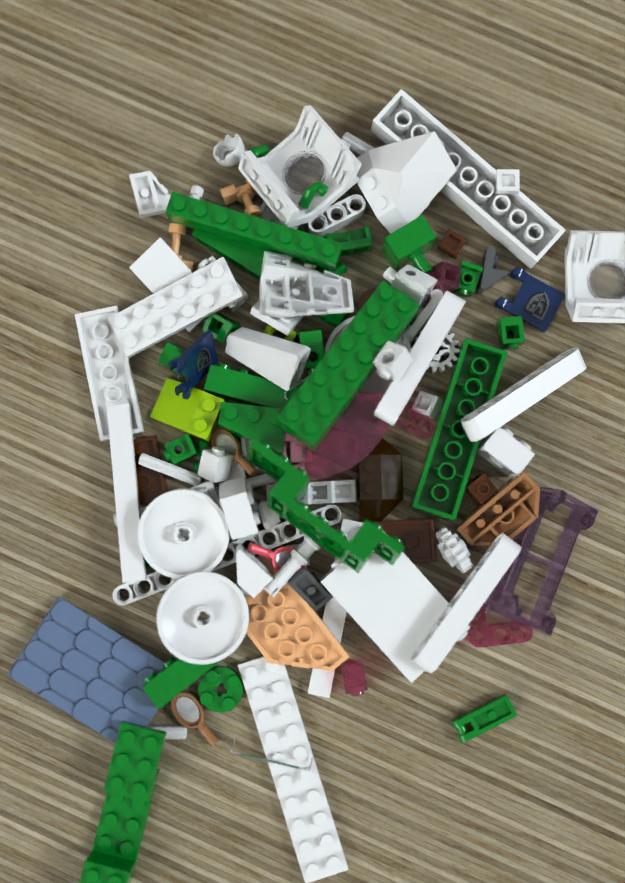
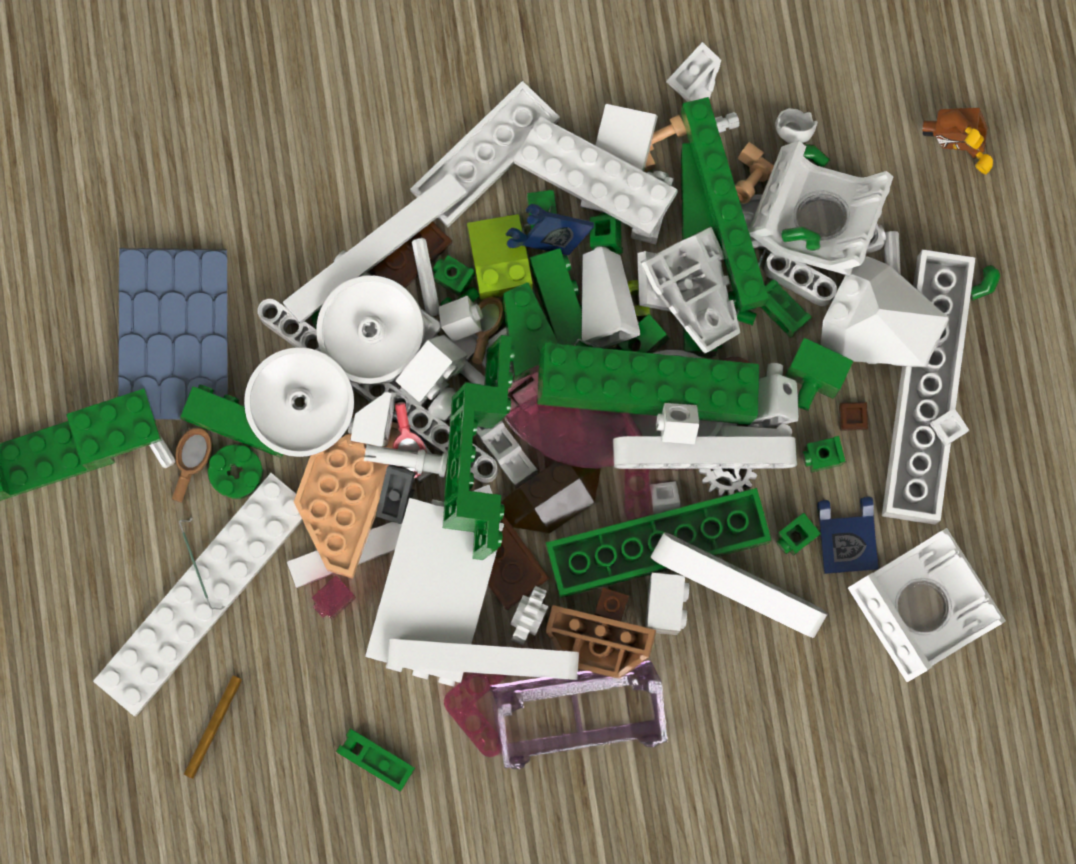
camera: 55 degrees right, 5 degrees down
(308, 40) = (961, 130): none -> dark orange torso
(387, 813) = (212, 727): none -> pearl gold bar
(418, 93) = (988, 284): none -> green arm
(447, 276) = (809, 428): clear pink brick -> none
(490, 276) = (842, 477): dark grey slope -> none

